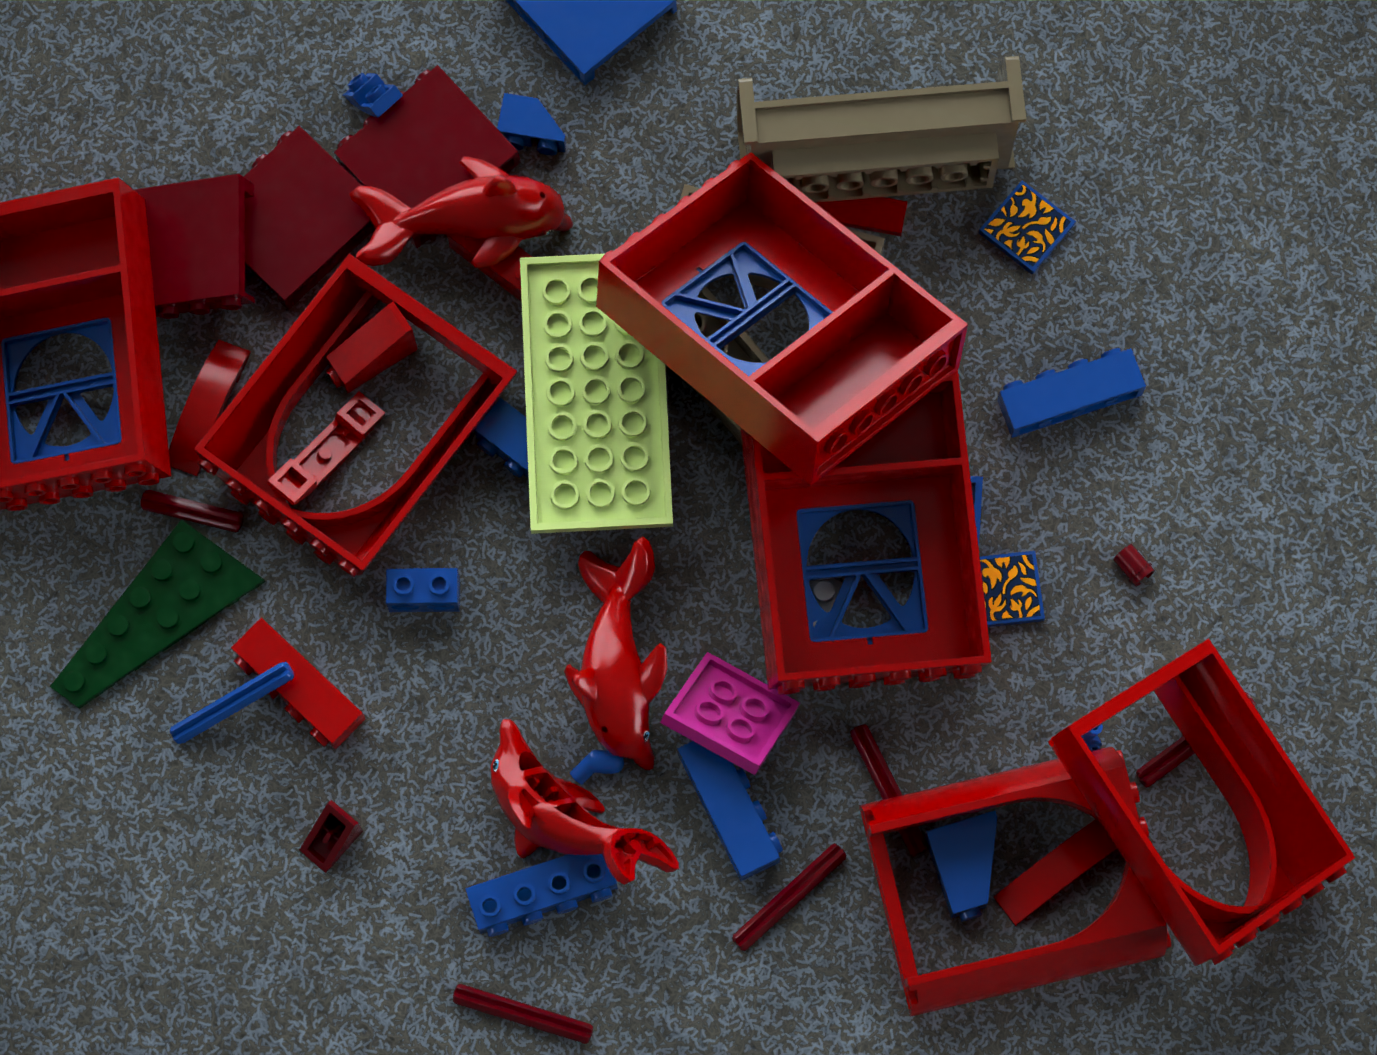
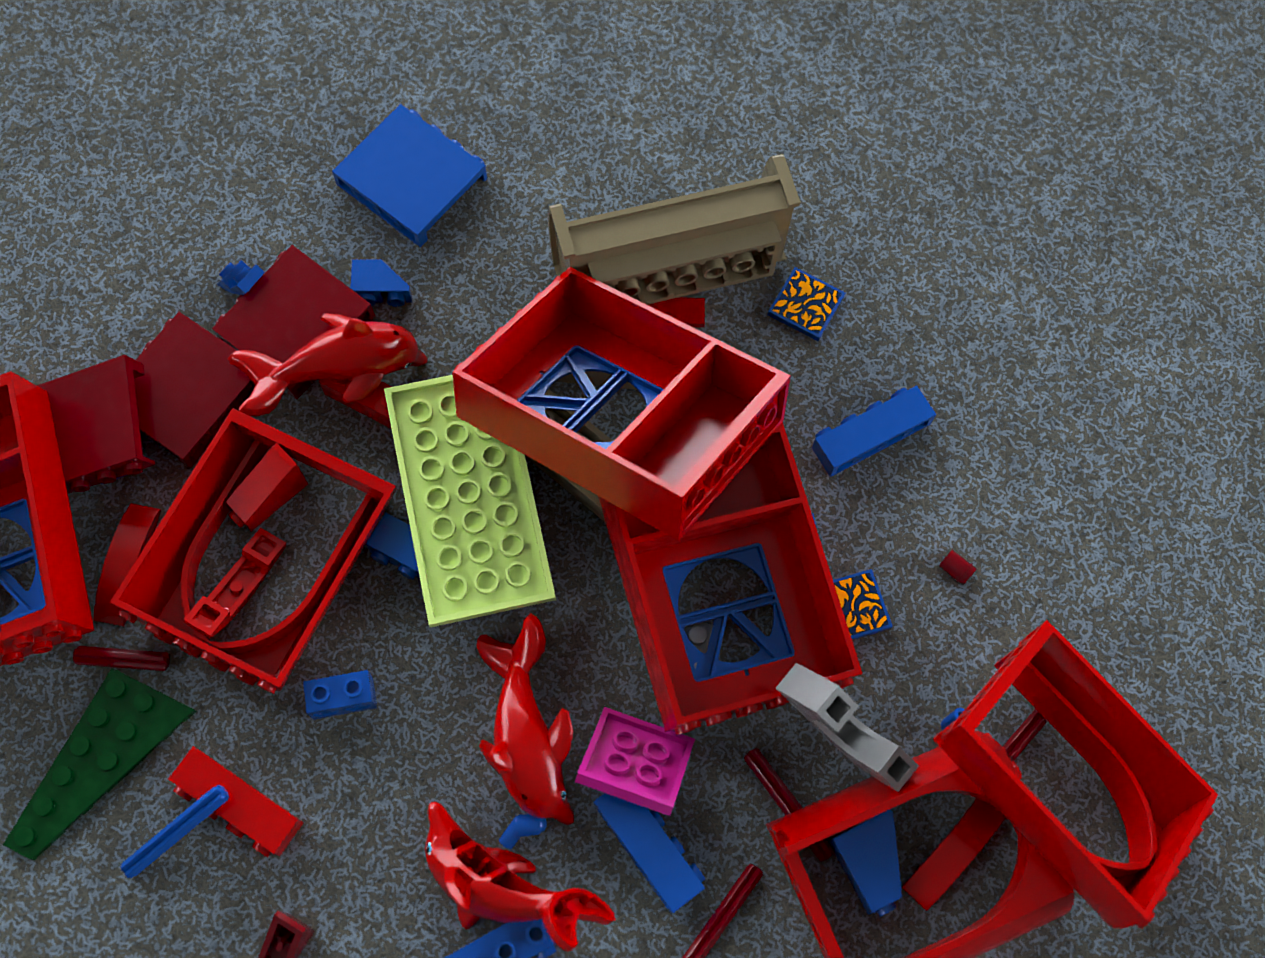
camera: 15 degrees left, 5 degrees down
(946, 699) = (831, 713): none -> light grey arch

